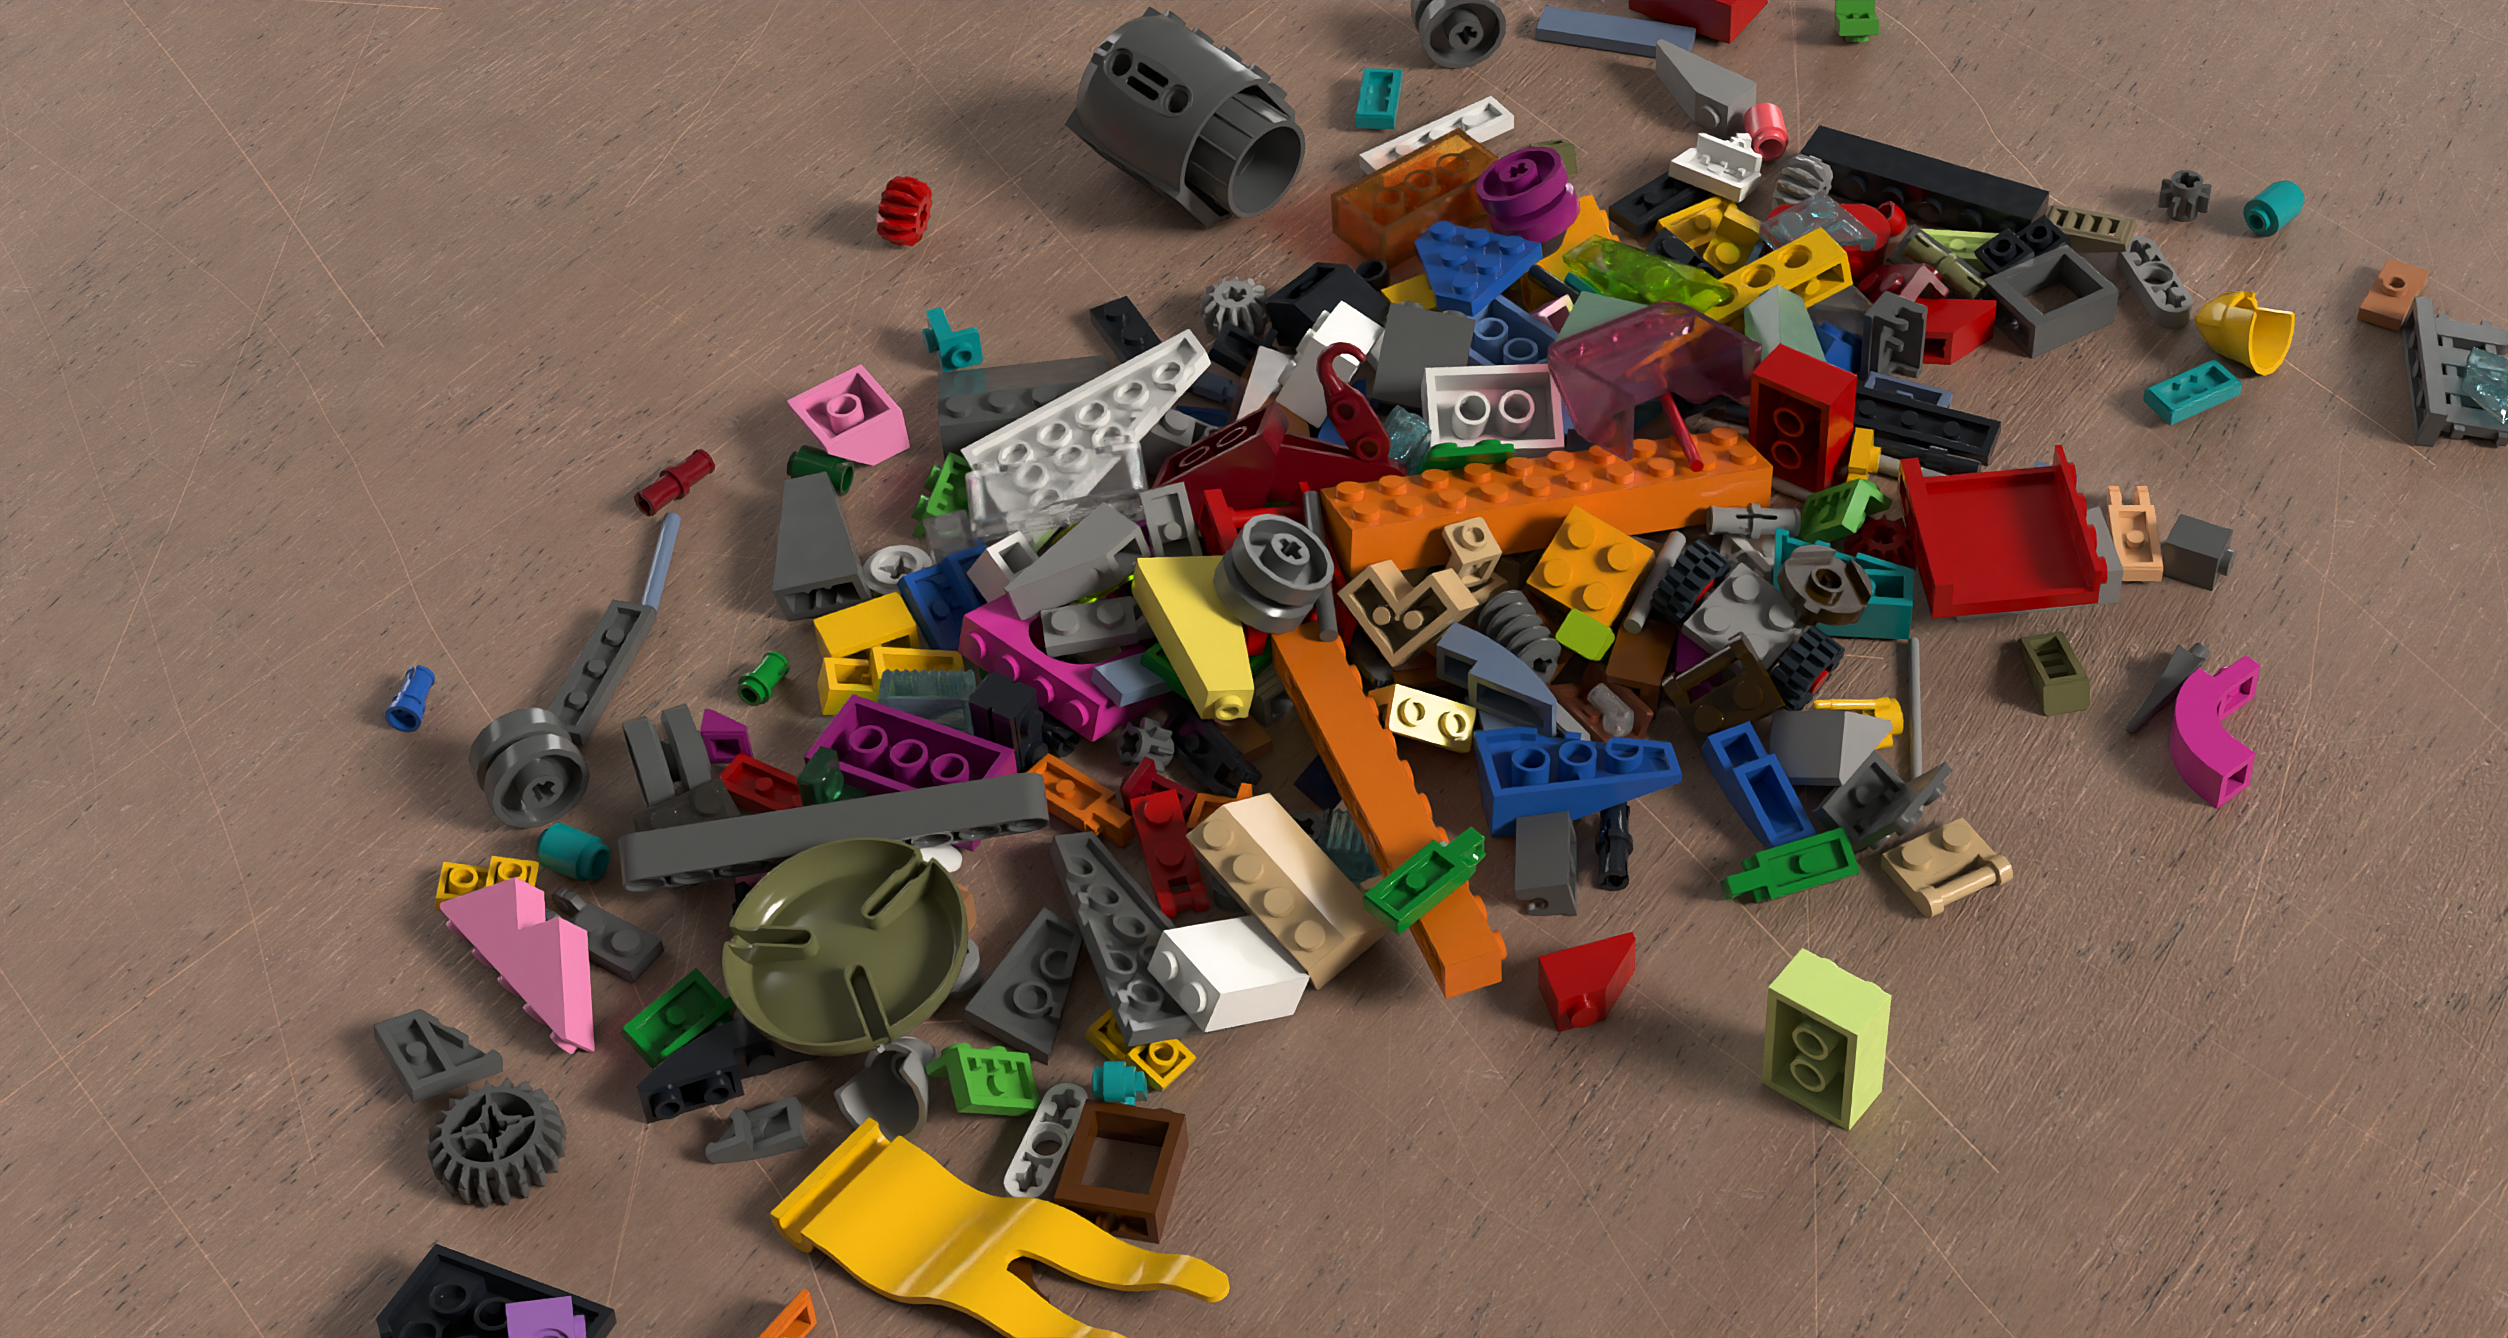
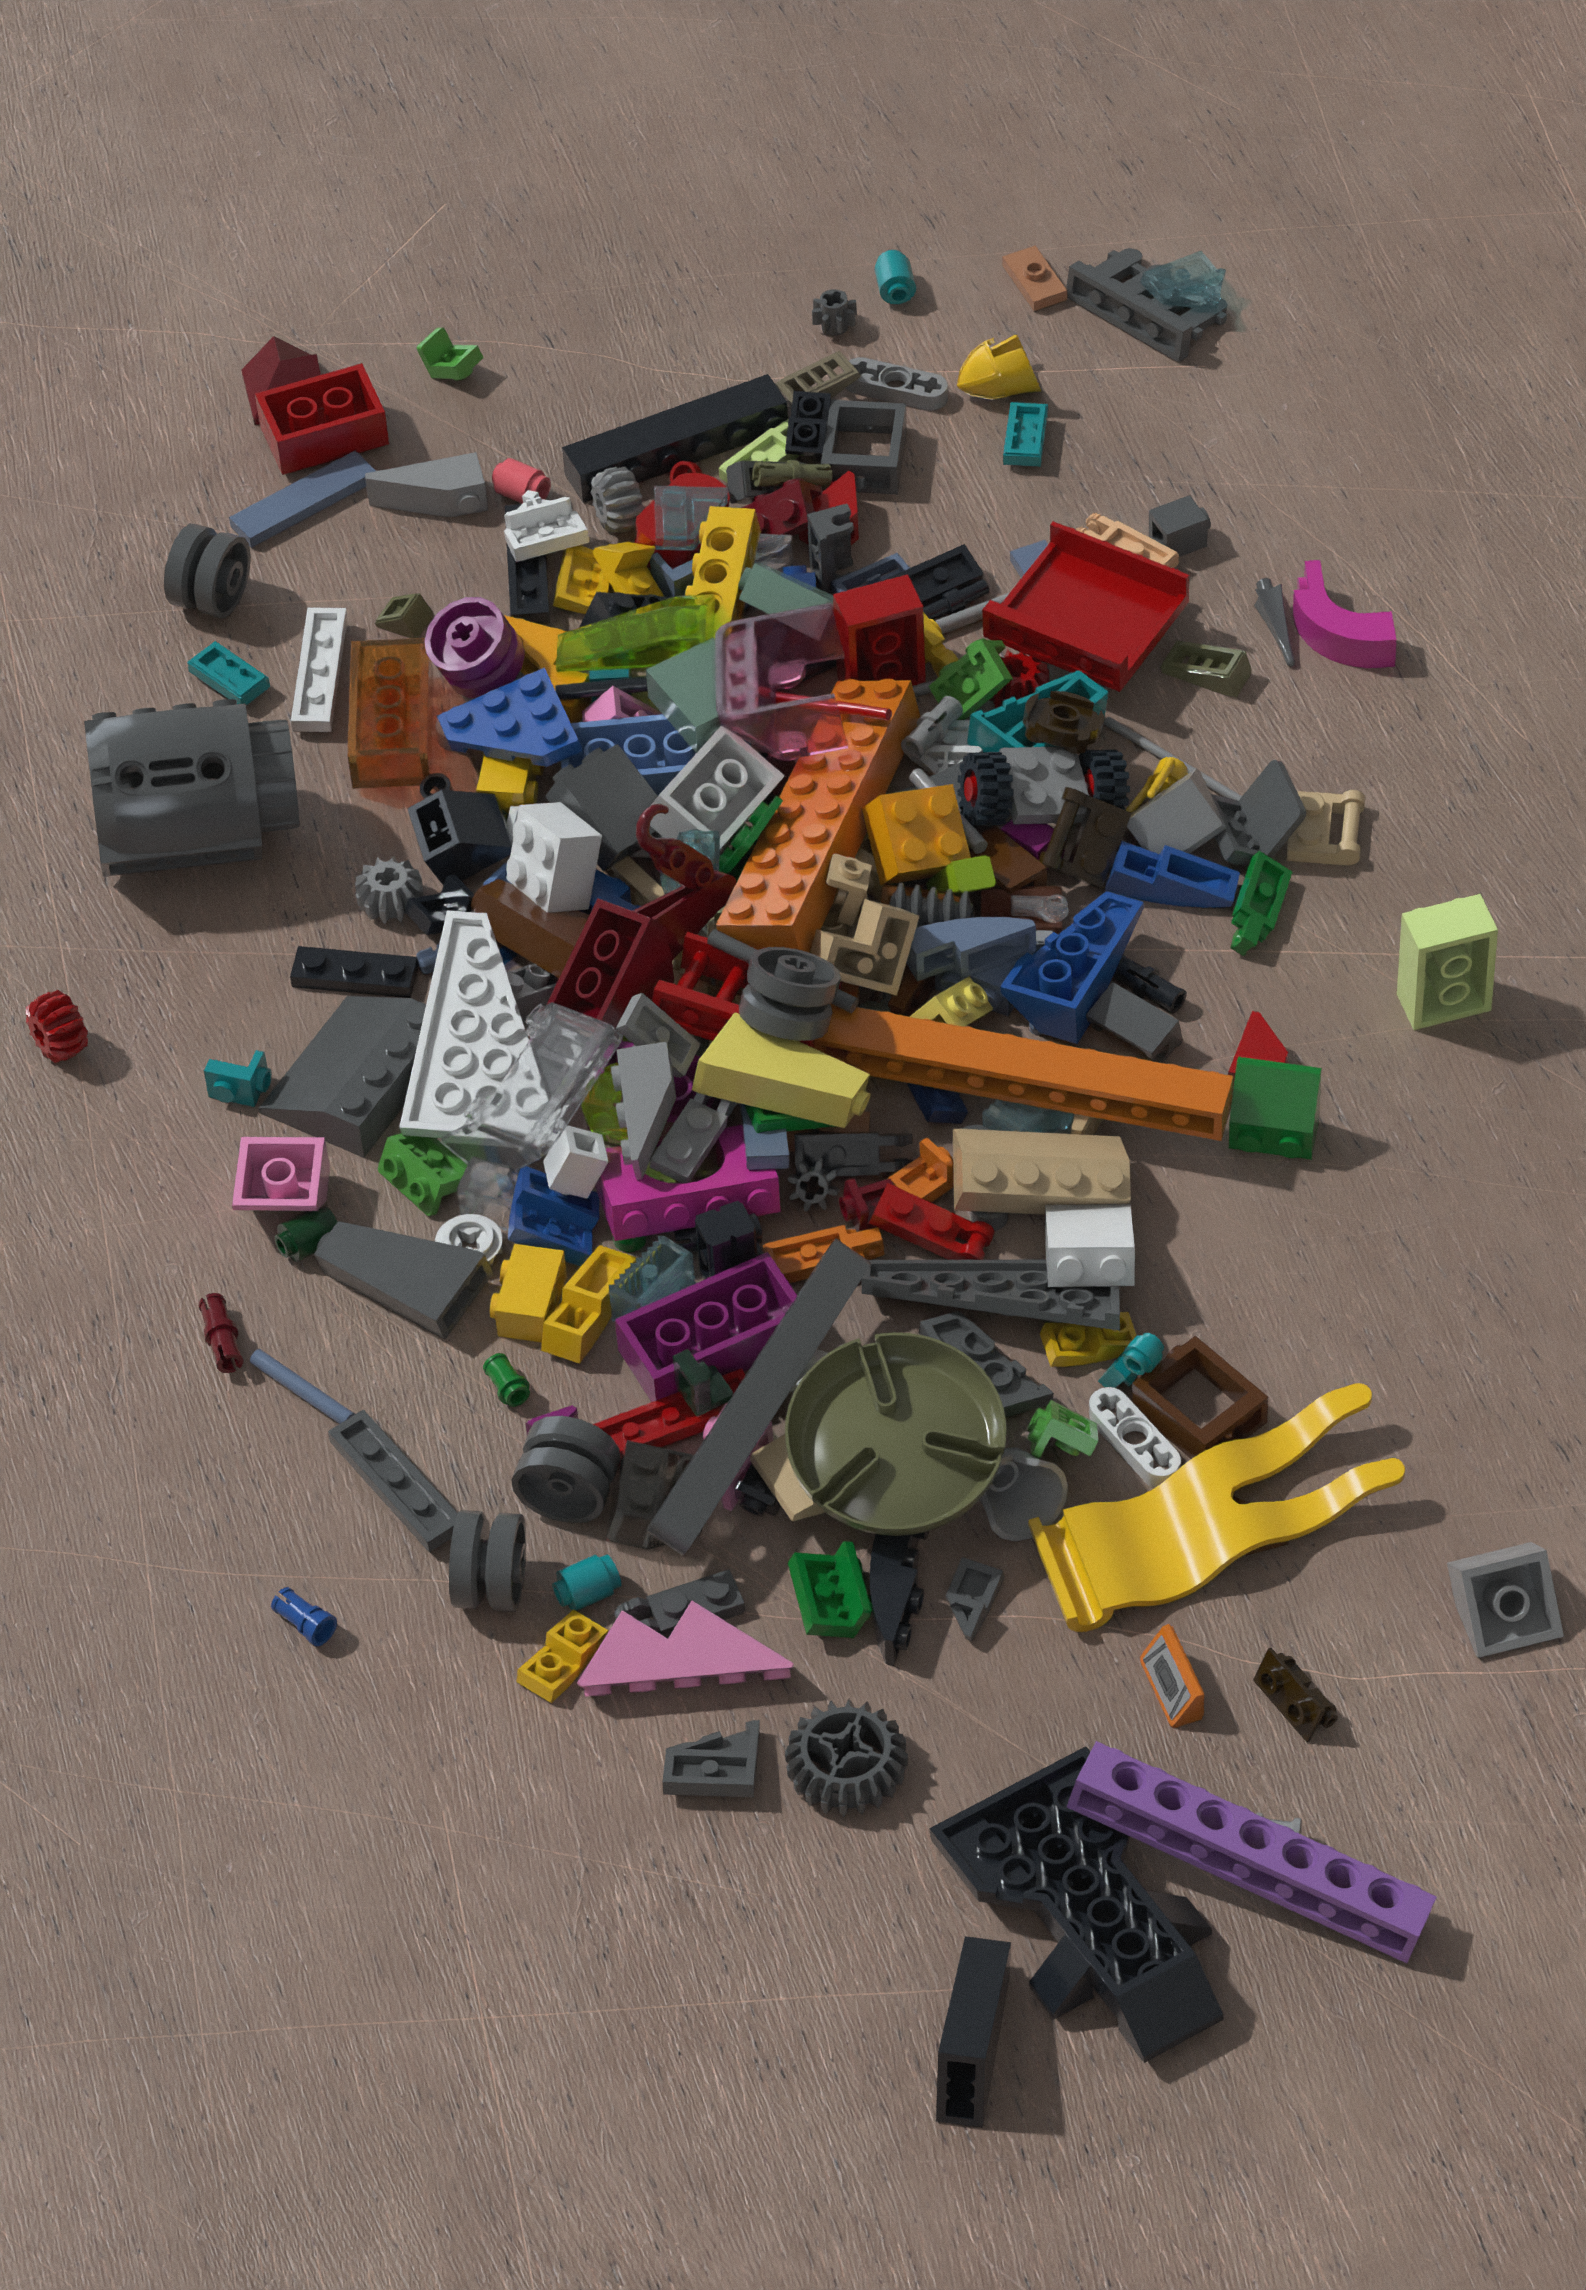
camera: 55 degrees left, 5 degrees up
(1424, 880) = (1147, 1078): green hinge -> none
(1526, 1021) = (1275, 1108): none -> green slope

